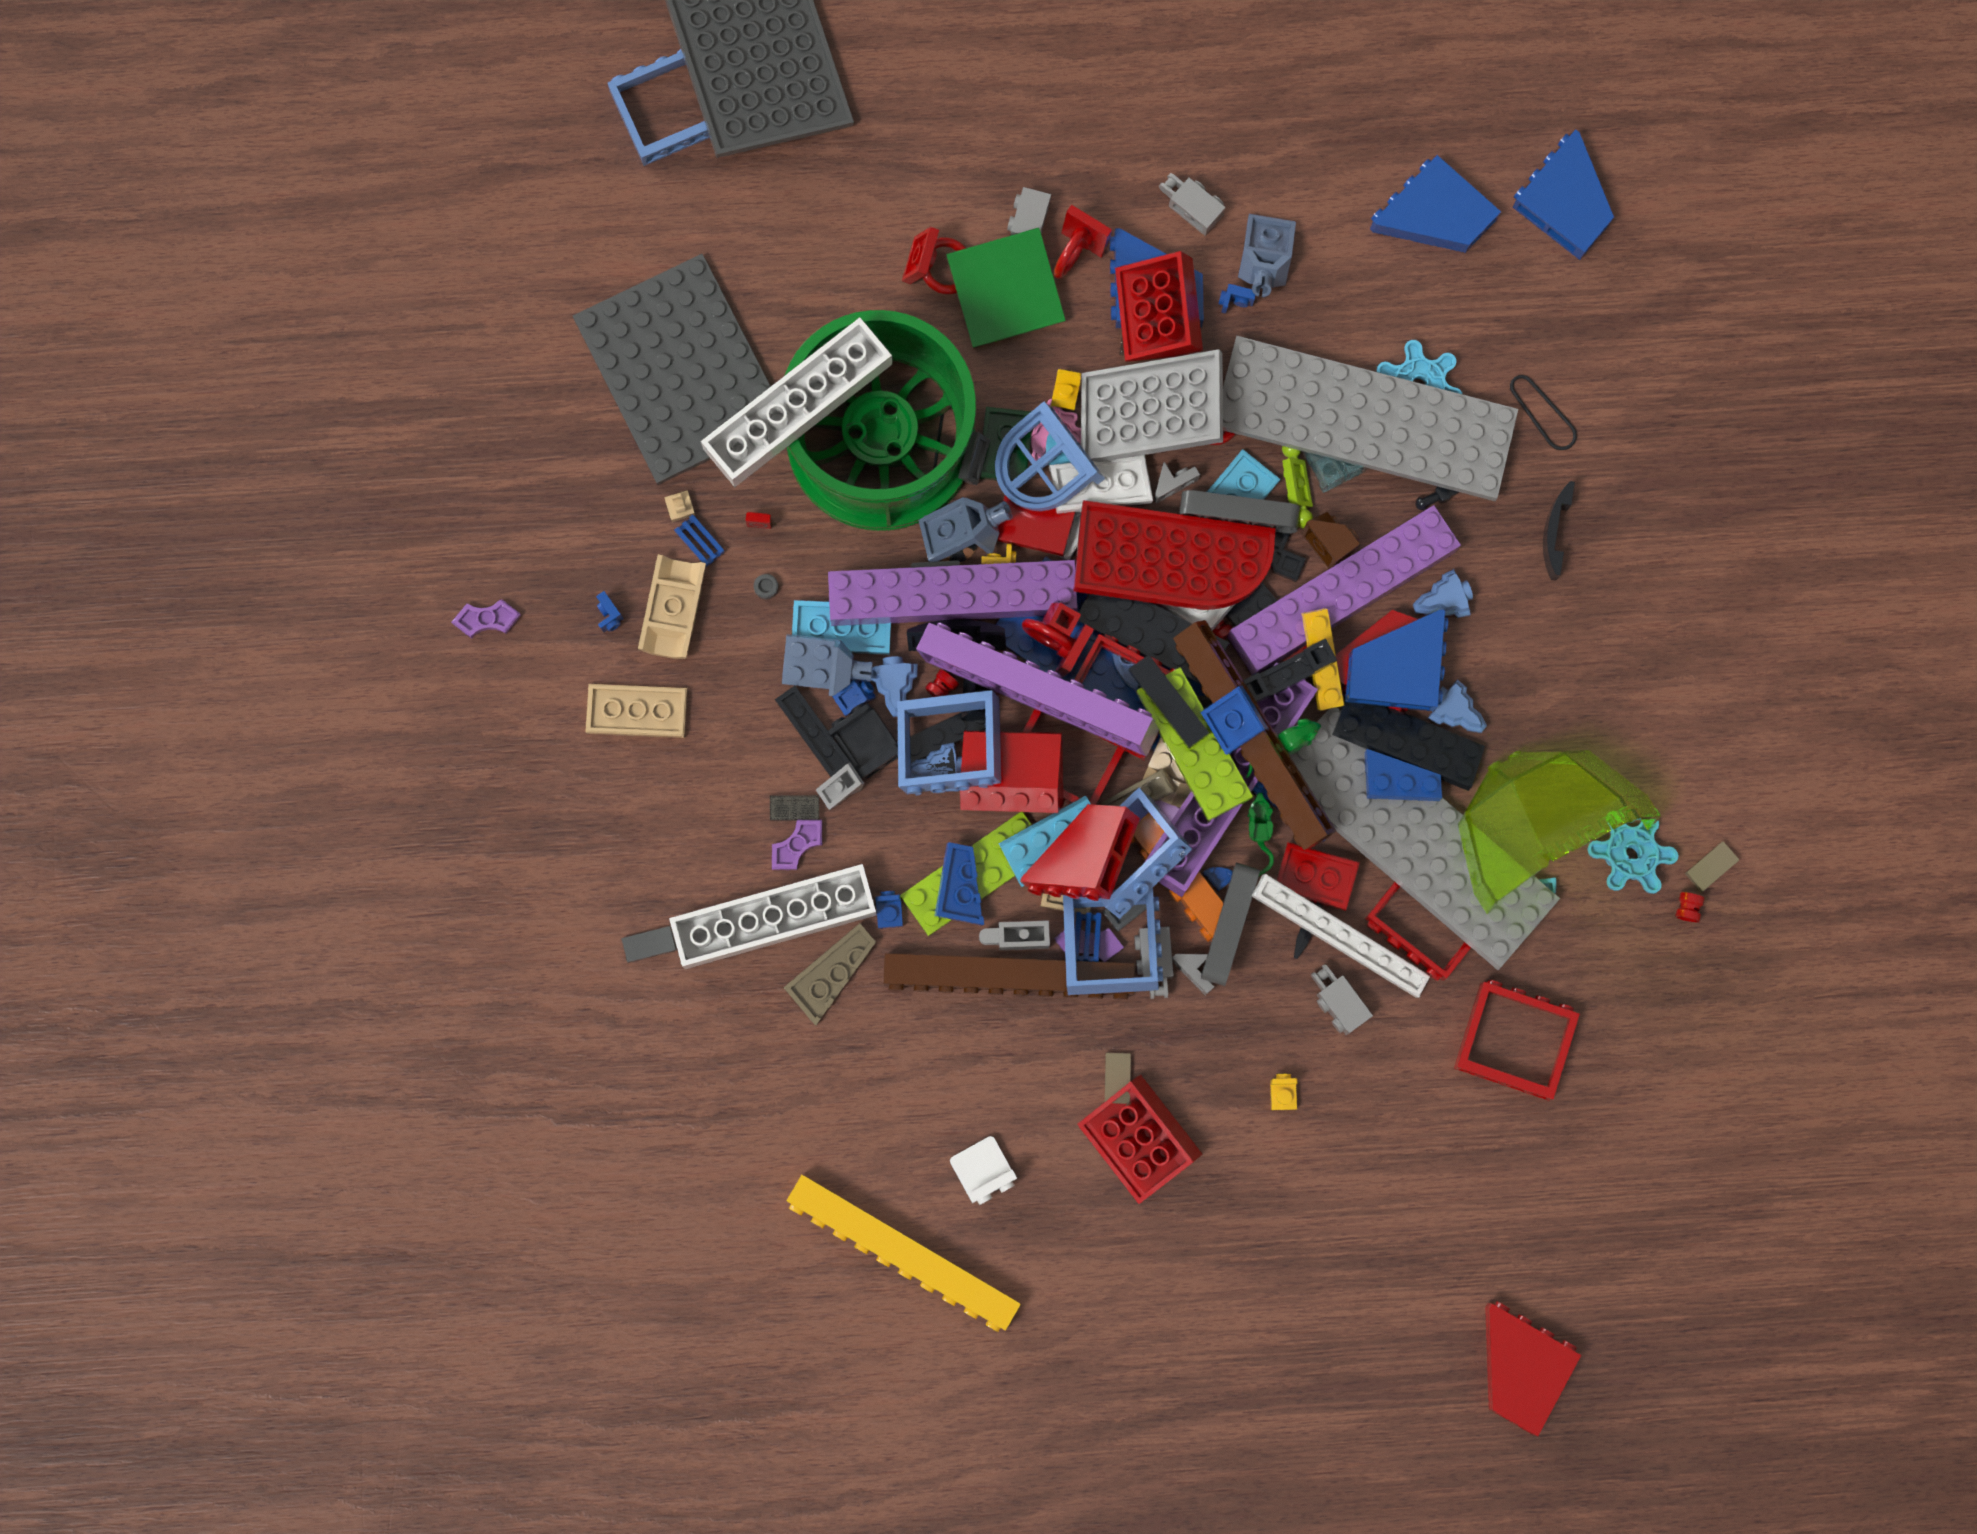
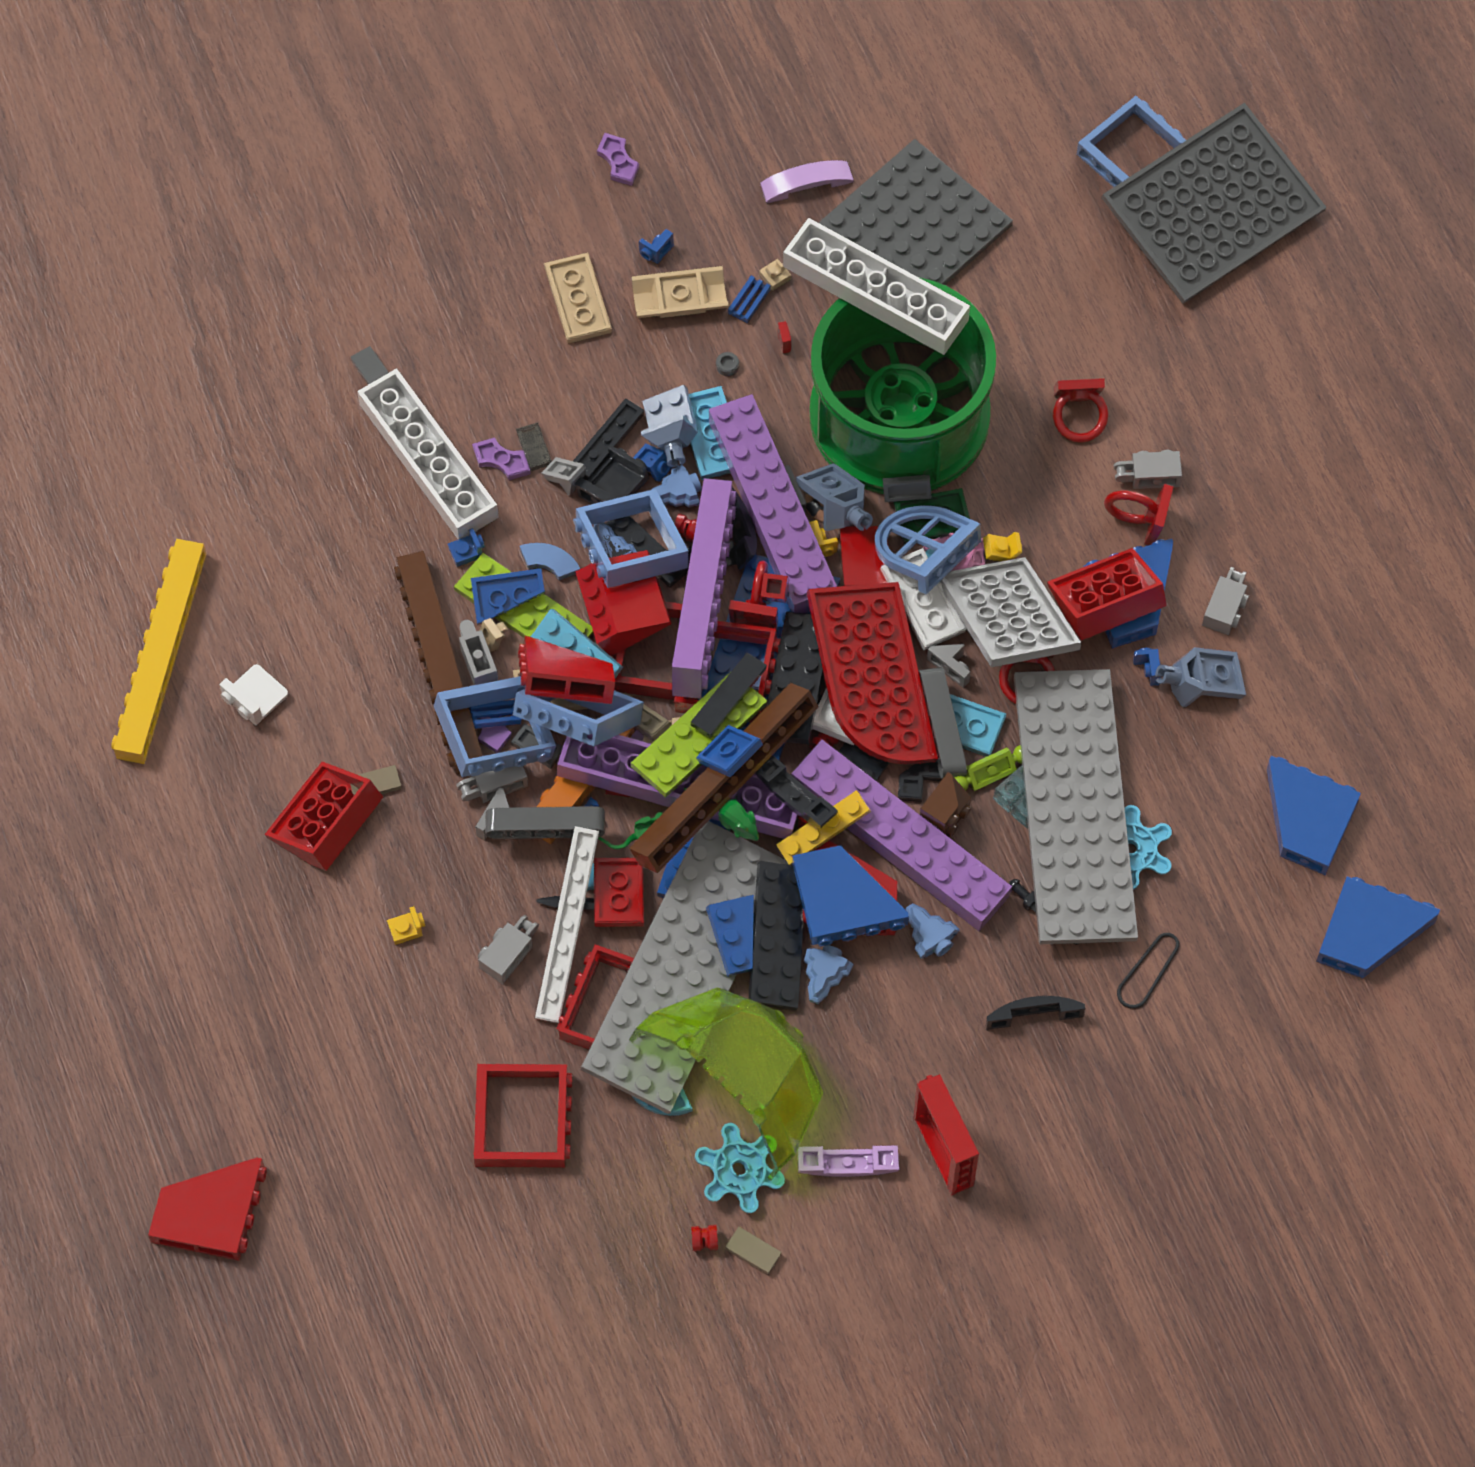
camera: 75 degrees right, 15 degrees down
(580, 439) = (805, 177): none -> lavender slope
(824, 978) = (390, 516): dark tan wing -> none
(927, 830) = (550, 558): none -> medium blue tile
(995, 913) = (493, 633): none -> tan tile
(1006, 287) = (1078, 467): green tile -> none
(1653, 747) = (848, 1161): none -> lavender slope
(1675, 650) = (945, 1134): none -> red window

